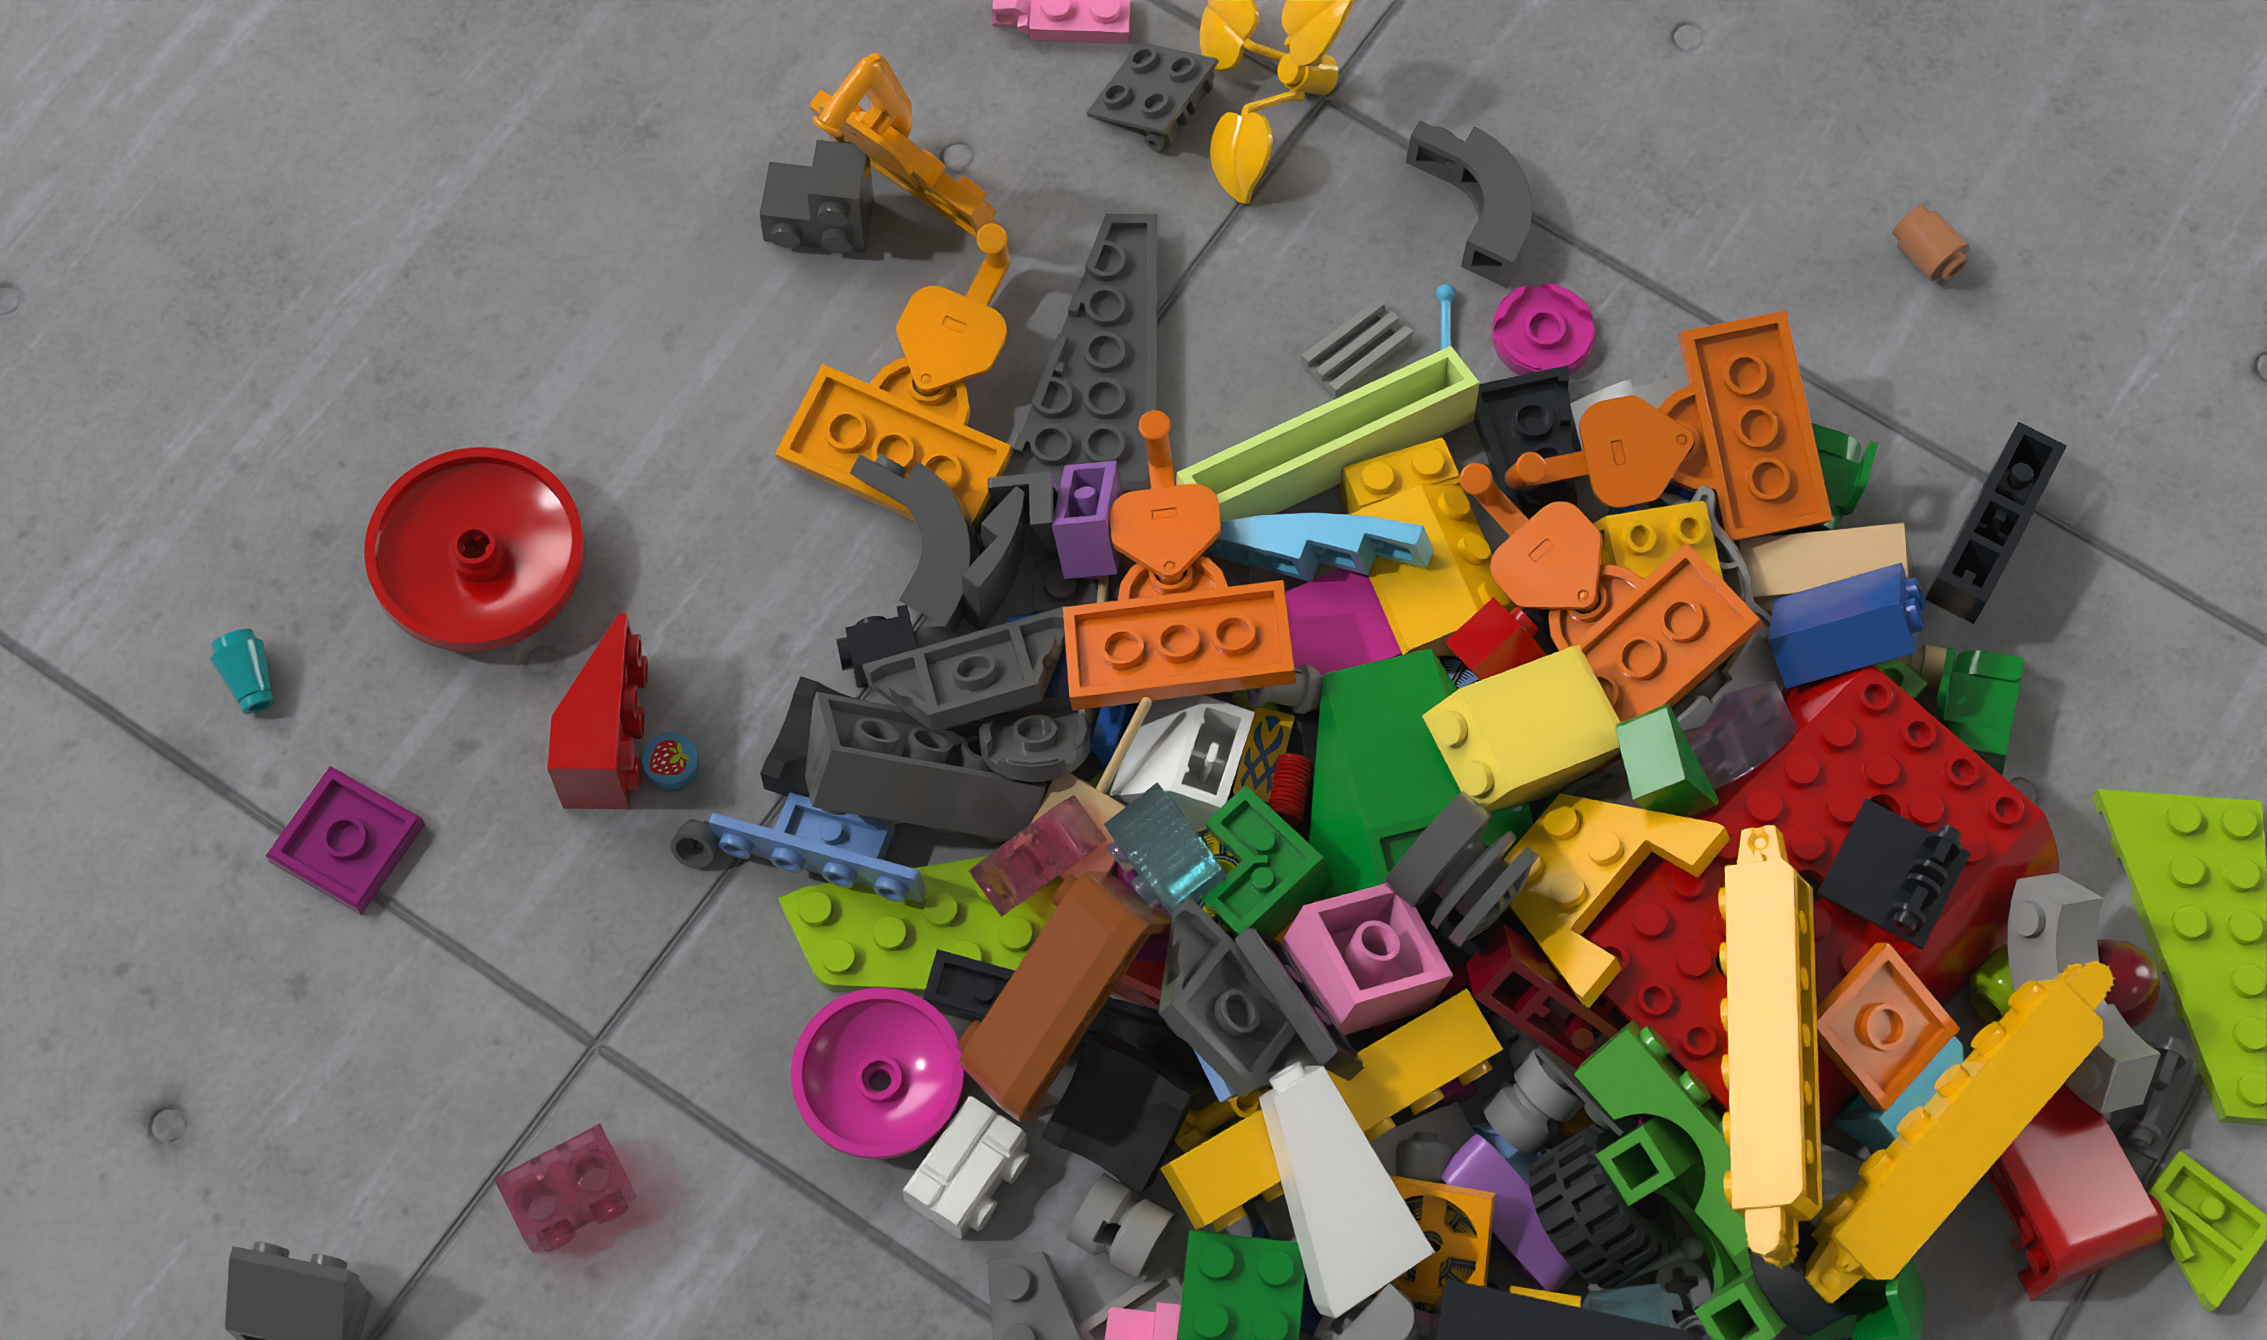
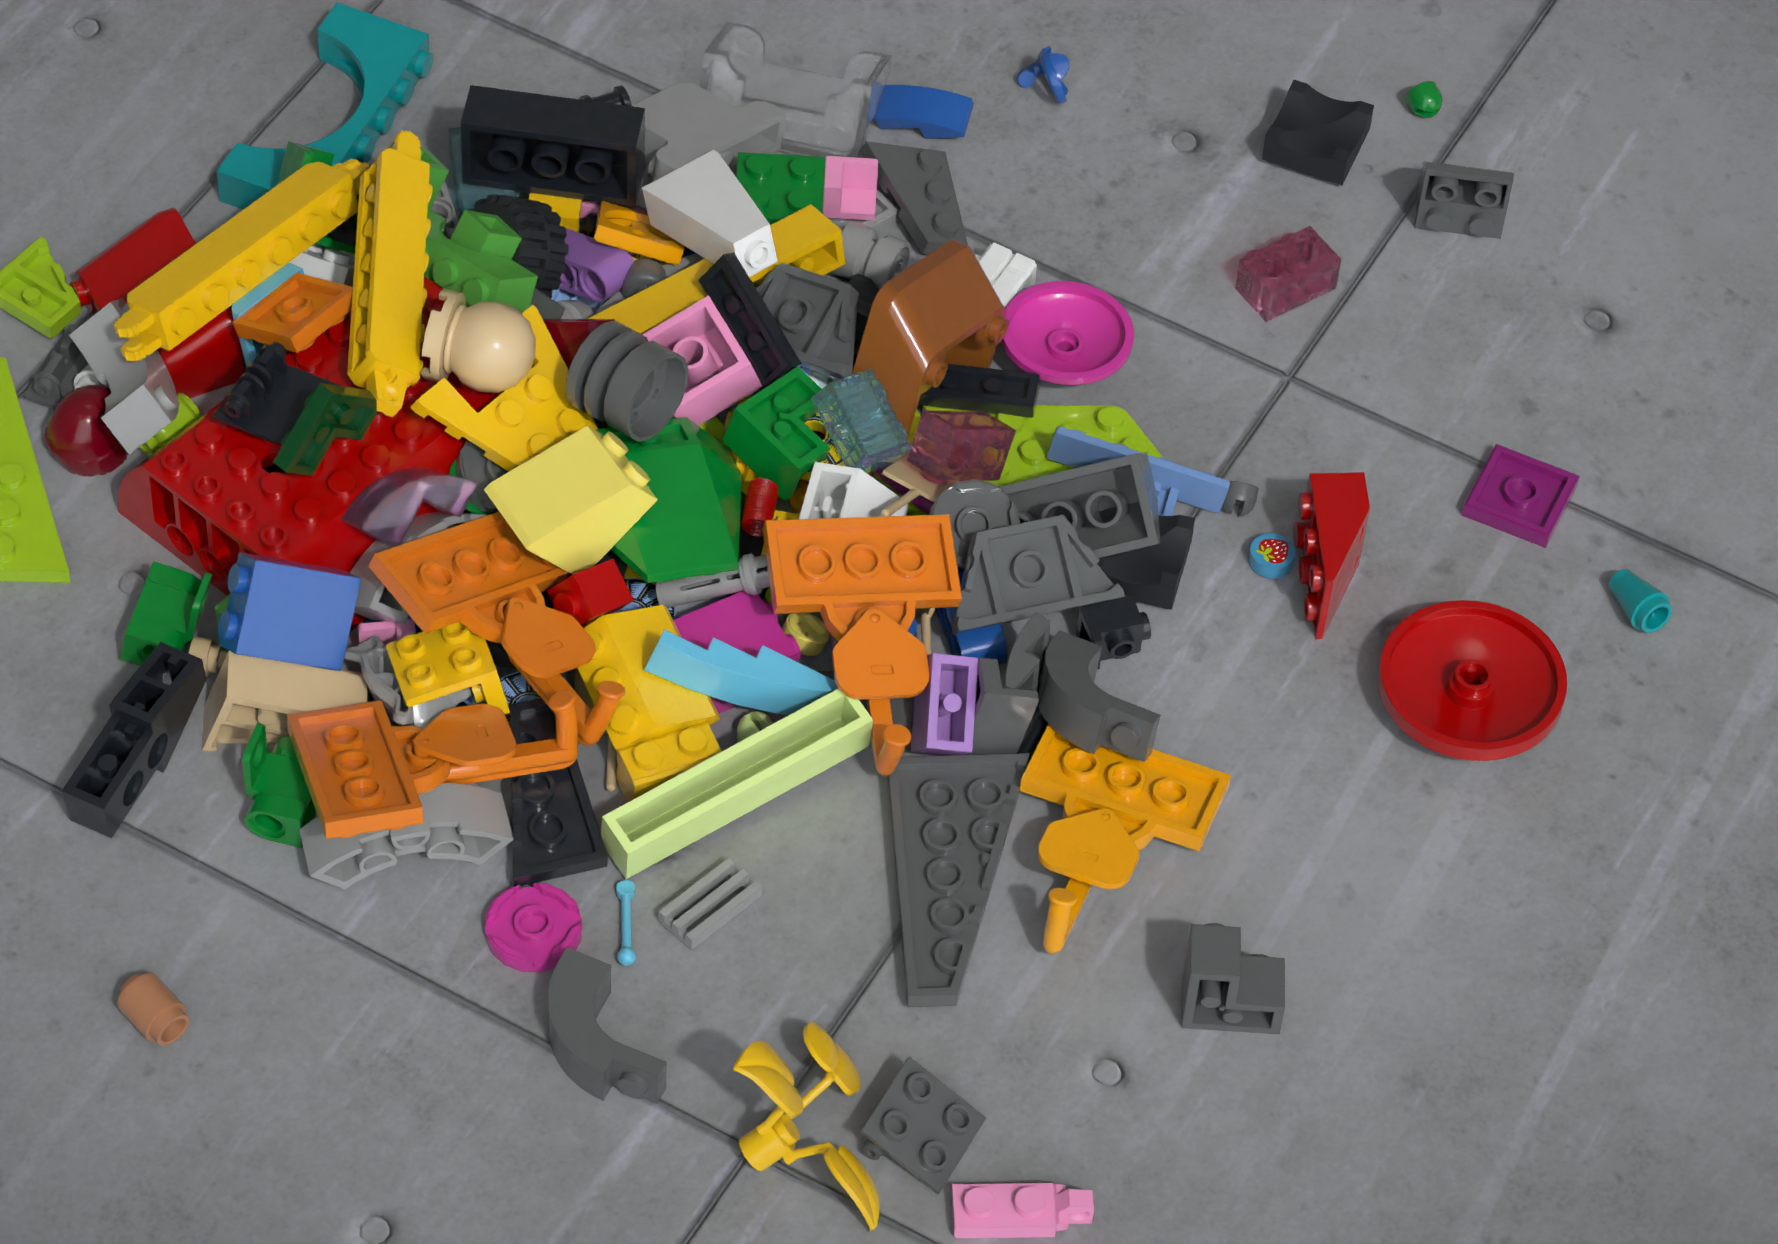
camera: 175 degrees right, 15 degrees down
(884, 138) = (1159, 977): light orange plate -> none
(1647, 906) = (483, 344): none -> tan tile
(1662, 765) = (461, 452): slope -> none
(1844, 781) = (327, 414): none -> dark green plate

